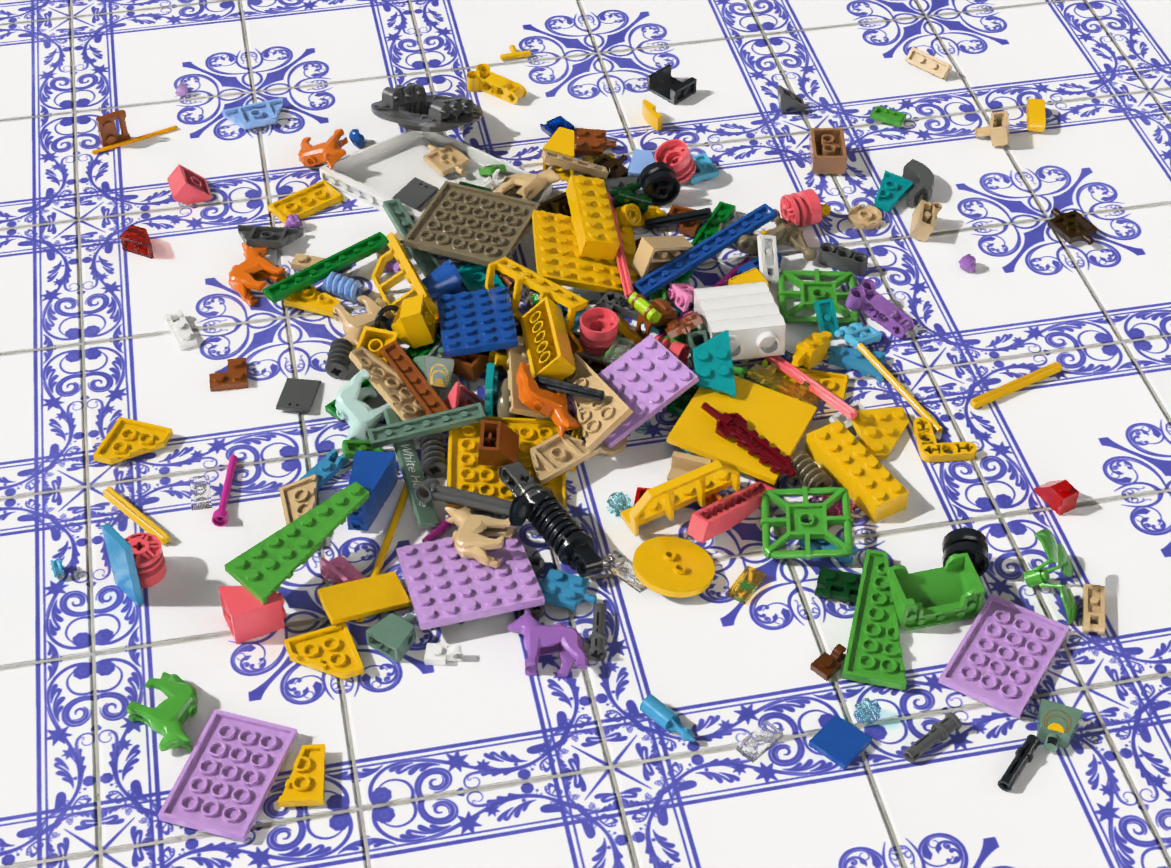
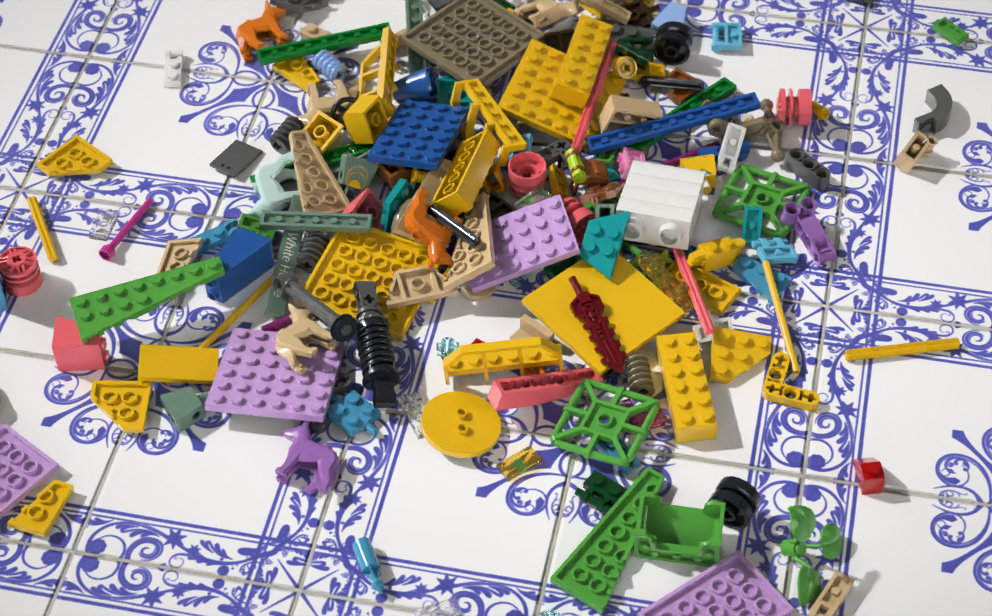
camera: 25 degrees right, 5 degrees up
(233, 379) = (190, 127): dark orange plate -> none
(339, 570) = (176, 333): bright pink bracket -> none
(413, 378) = (331, 173): dark orange plate -> none
(440, 653) = (215, 436): white plate -> none
(497, 444) = (365, 258): dark orange slope -> none
(598, 638) = (355, 469): dark grey pin -> none
(677, 155) = (704, 24): coral wheel -> none
(827, 151) = (861, 52): medium nougat brick -> none
(828, 665) = (545, 565): reddish brown plate -> none
(865, 217) = (861, 131): tan tile -> none
(892, 191) = (903, 112): teal wing -> none
(968, 263) = (932, 209): medium lavender plate -> none

